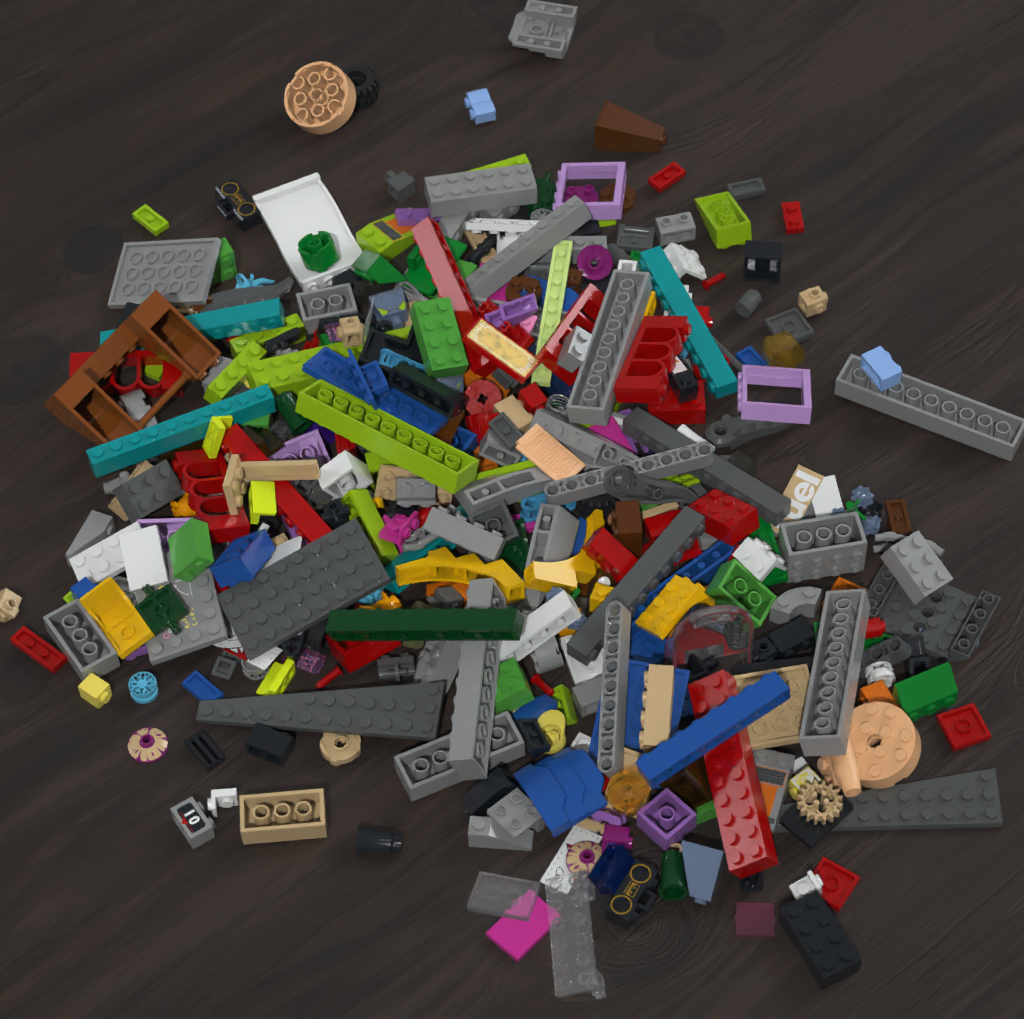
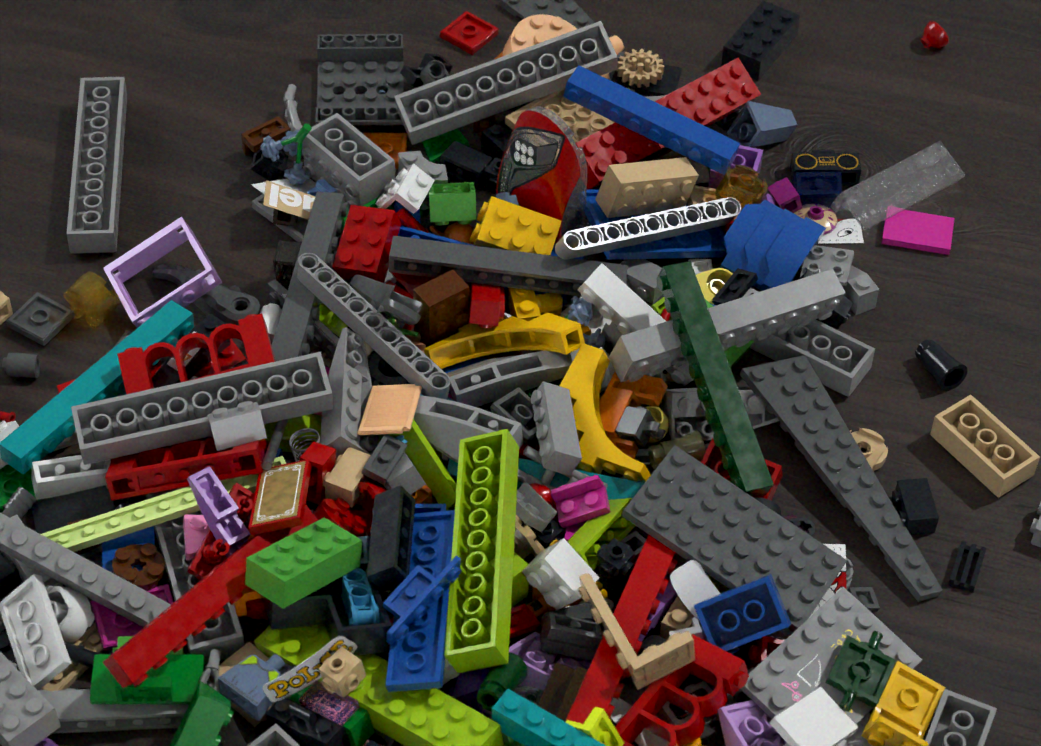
camera: 125 degrees left, 5 degrees down
(95, 690) = (996, 696): light yellow brick -> none
(149, 687) = (948, 662): medium azure wheel -> none
(149, 751) = (1003, 632): tan dish -> none
(190, 550) = (778, 662): bright green brick -> none
(201, 687) = (900, 610): blue tile -> none
(222, 798) = (1007, 513): white bracket -> none
(261, 500) = (654, 630): neon yellow panel -> none
(277, 678) = (843, 534): neon yellow panel -> none
(329, 677) = (795, 504): red piece -> none
(503, 896) = (906, 251): clear tile -> none
(554, 374) = (274, 444): none -> flat silver bar
(598, 254) = (41, 518): magenta dish -> none
(672, 878) = (781, 149): dark green plant -> none
(750, 357) = (109, 332): blue tile -> none
(755, 919) = (774, 92): clear pink piece -> none
(806, 885) = (716, 57): white bracket -> none
(837, 883) = (697, 57): red tile -> none
(881, 368) = (82, 193): light blue brick -> none
(916, 567) = (330, 88): light grey brick -> none
(926, 692) = (456, 52): green slope -> none

